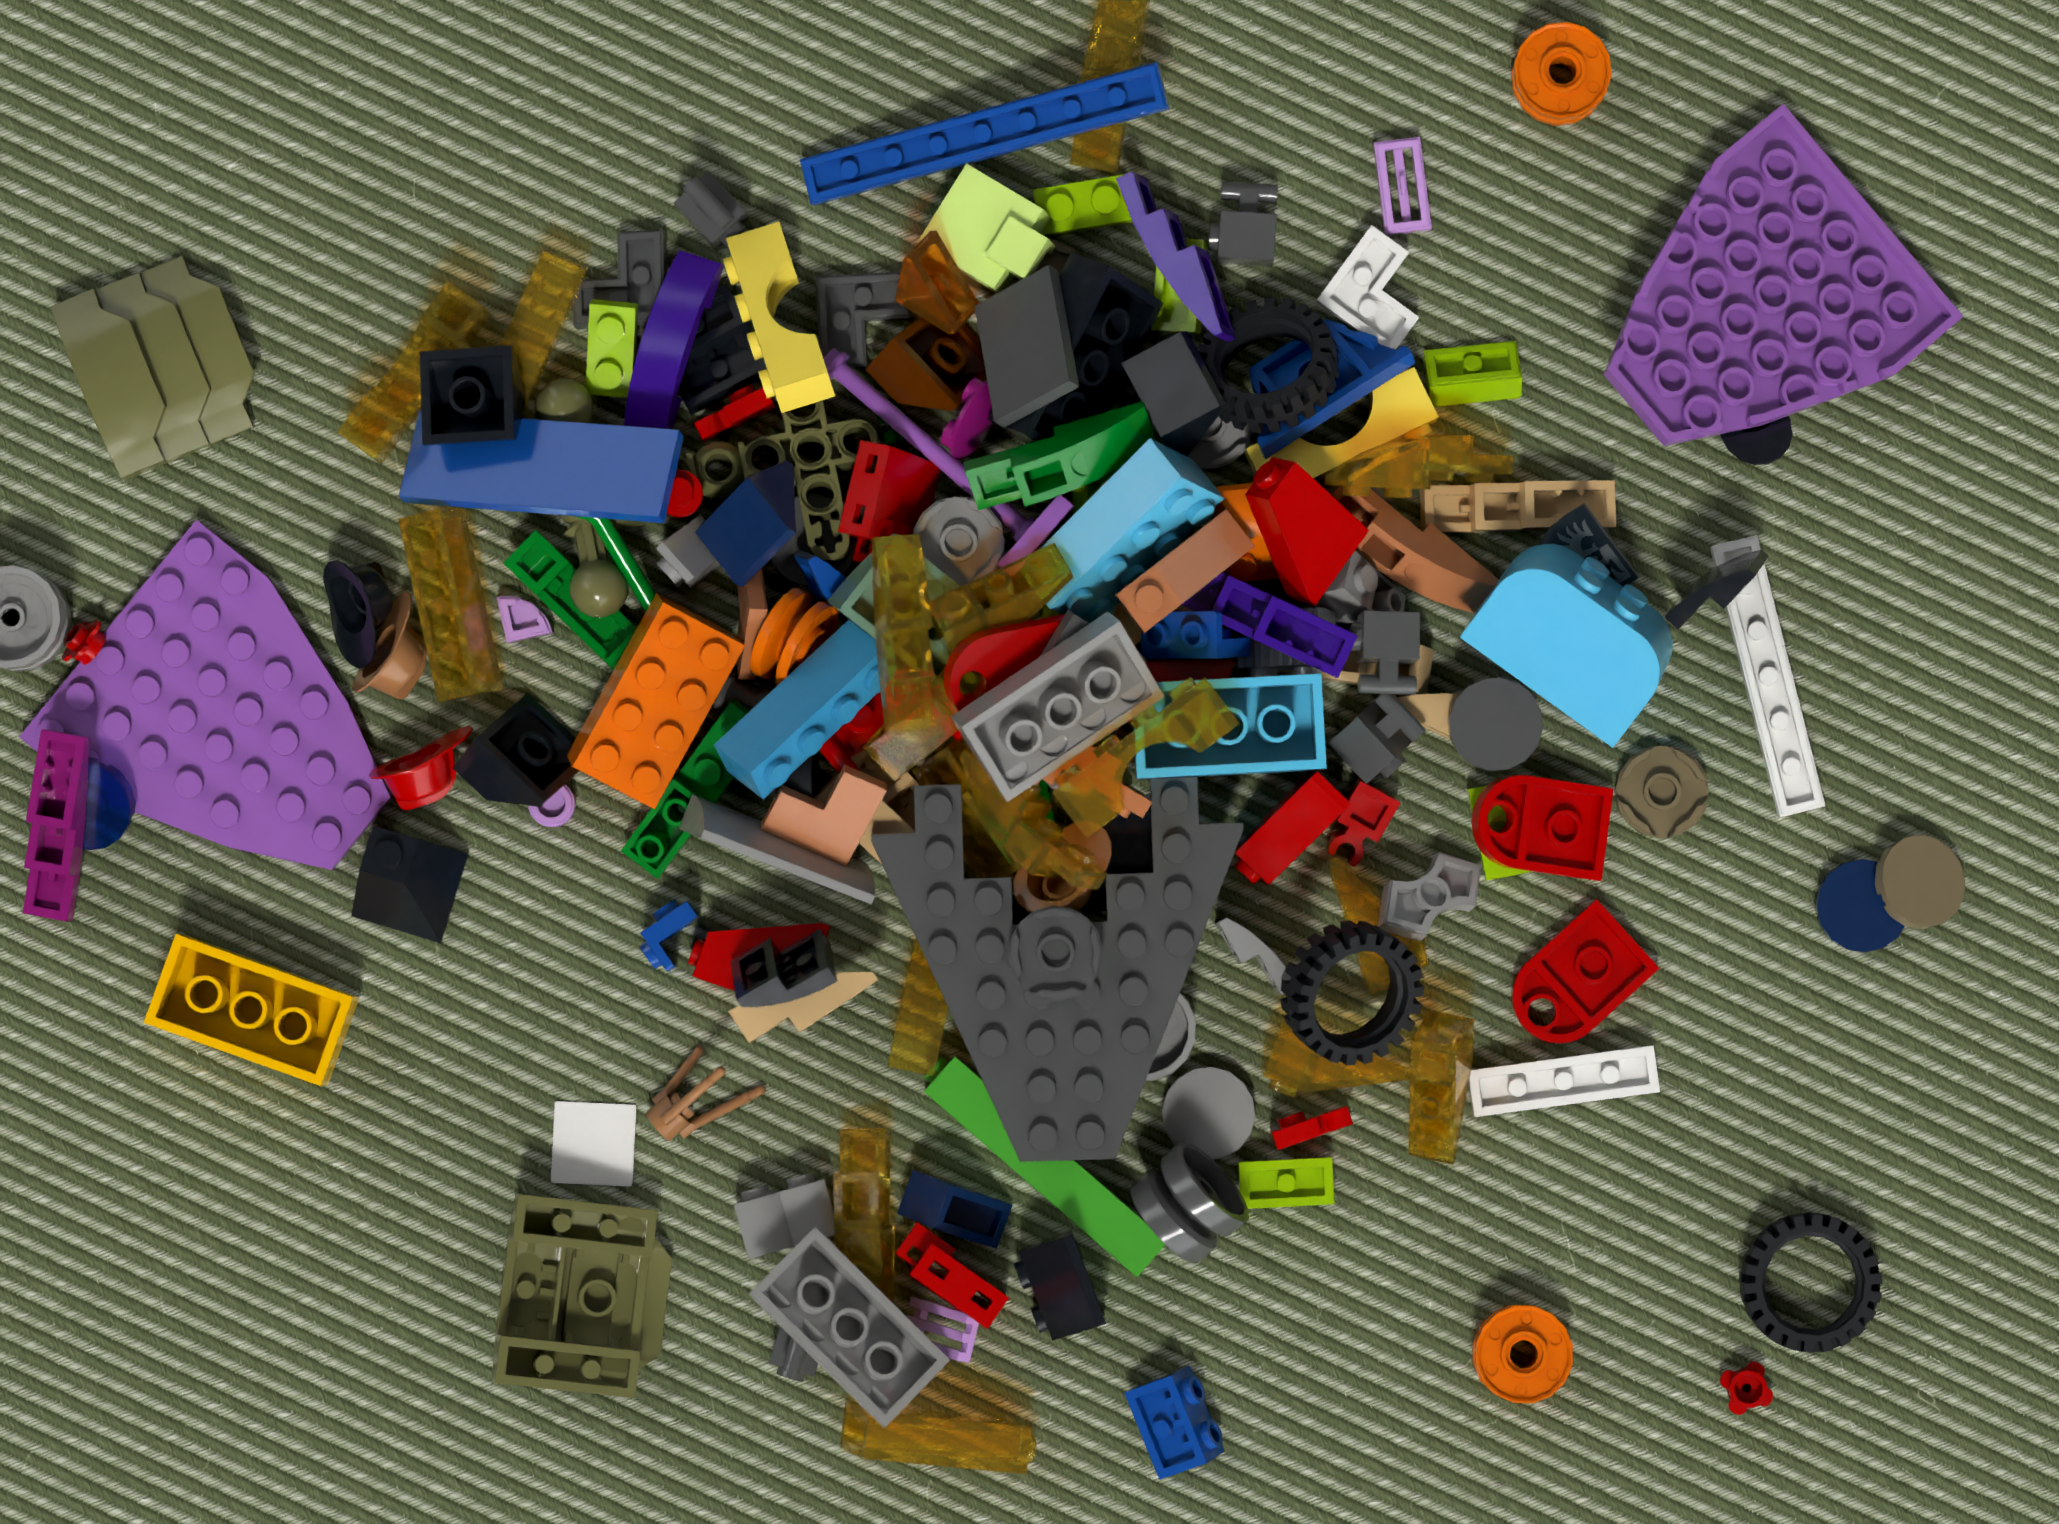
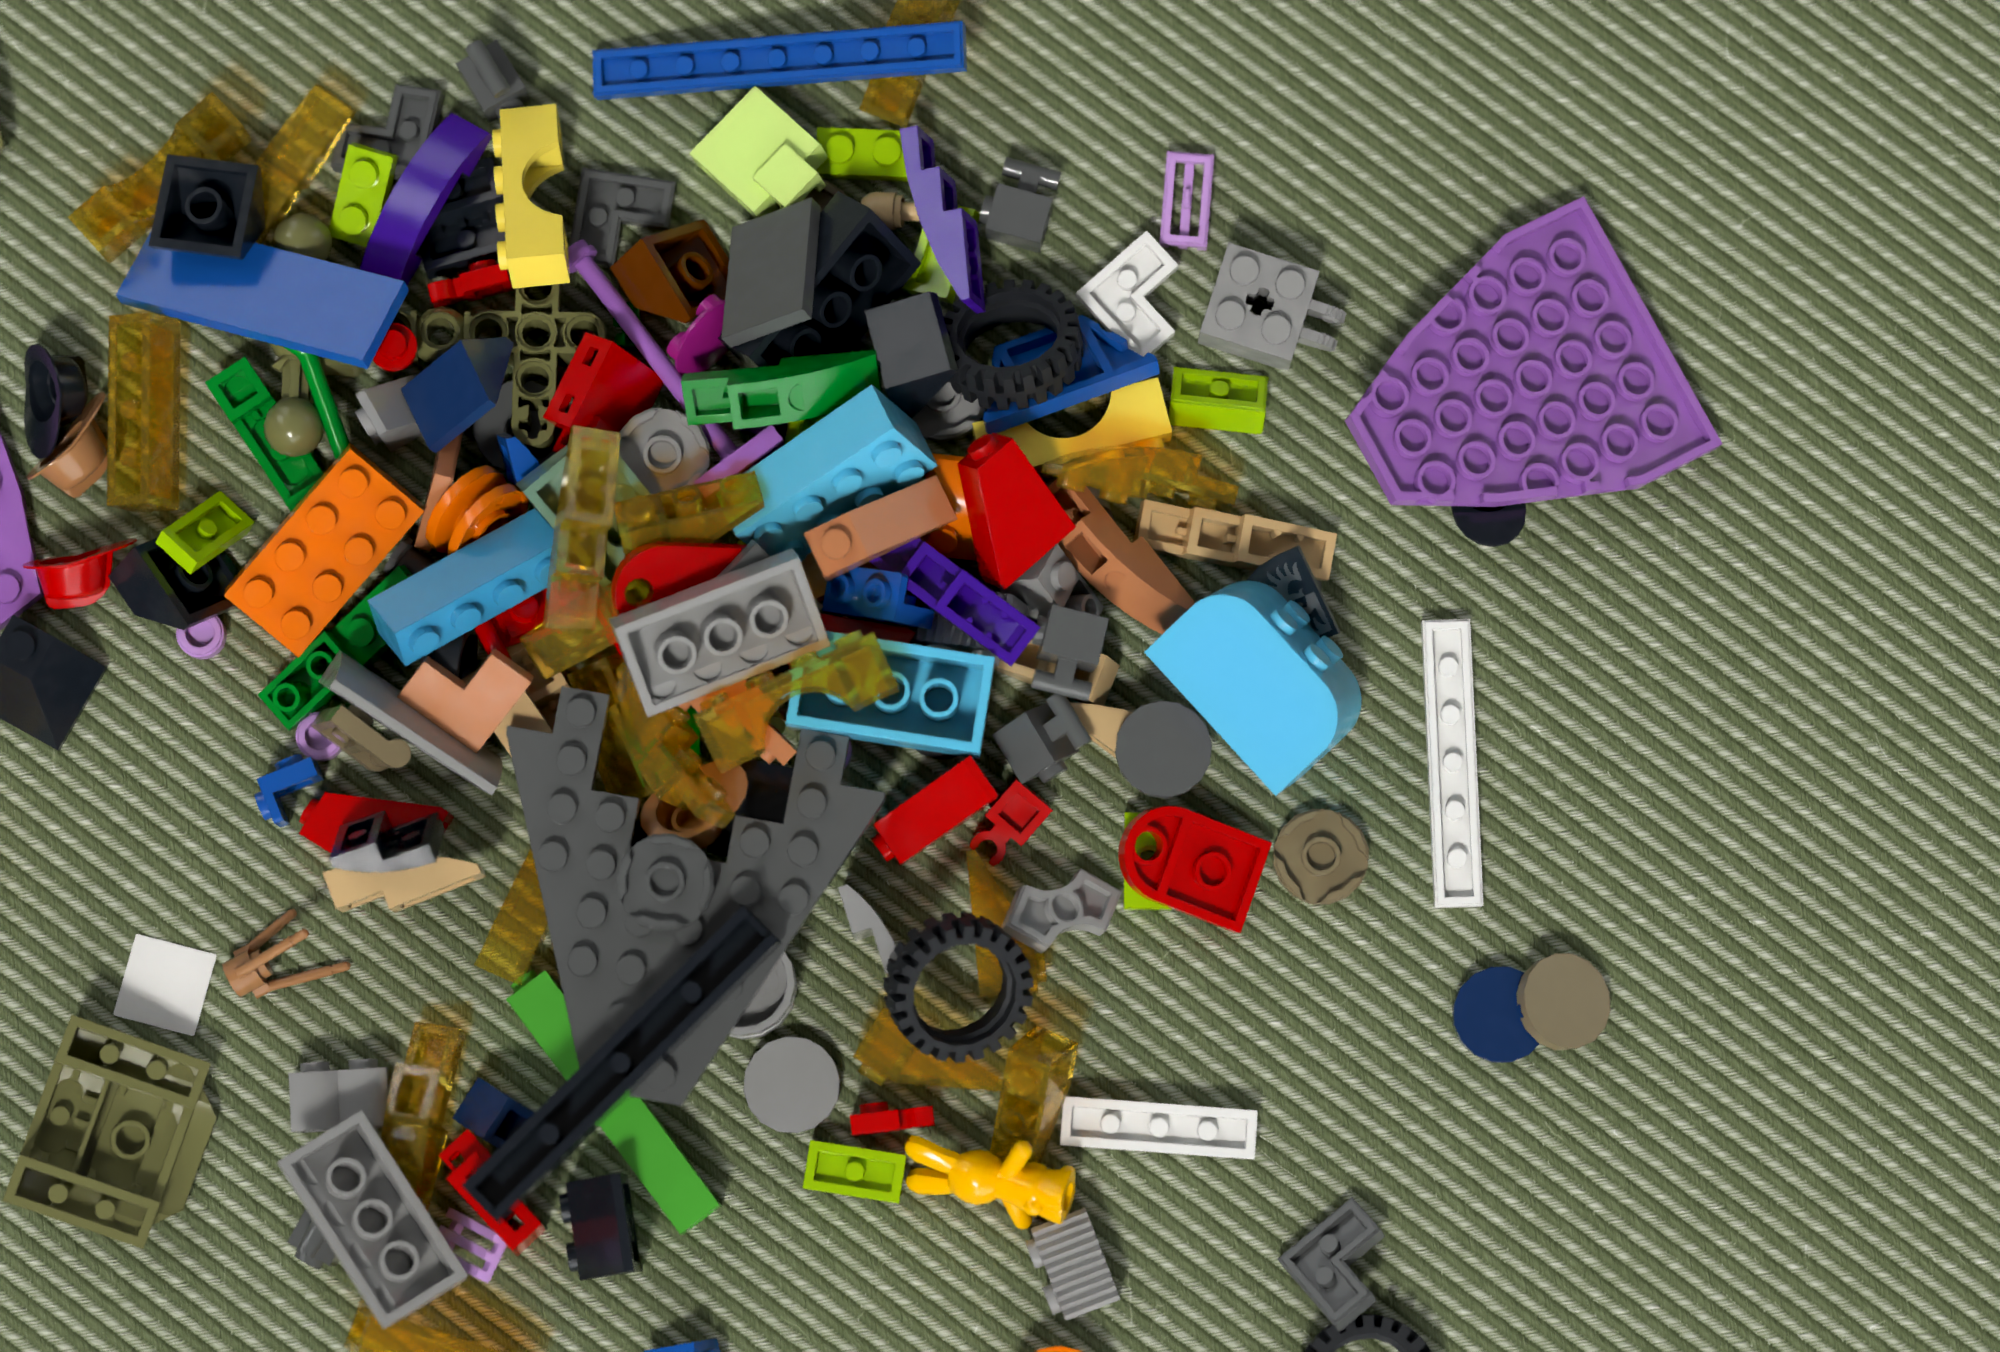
camera: 15 degrees right, 5 degrees down
(522, 619) = (213, 445): lavender tile -> none
(536, 707) = (204, 532): none -> lime plate
(688, 877) = (313, 743): none -> lavender tile
(726, 873) = (352, 733): none -> dark tan plate
(935, 286) = (696, 198): clear orange slope -> none
(1054, 1134) = (621, 1064): none -> black tile
(1120, 254) = (891, 208): none -> tan cylinder
(1189, 1202) = (749, 1168): dark grey wheel -> none
(1408, 1164) = (982, 1177): none -> yellow animal
(1510, 1226) = (1073, 1265): none -> light grey brick
(1519, 297) = (1274, 333): none -> light grey hinge
(1564, 45) = (1367, 93): orange wheel -> none
(1582, 974) = (1201, 1024): red tile -> none
(1720, 584) = (1418, 658): black slope -> none
(1743, 1173) = (1323, 1260): none -> dark grey tile

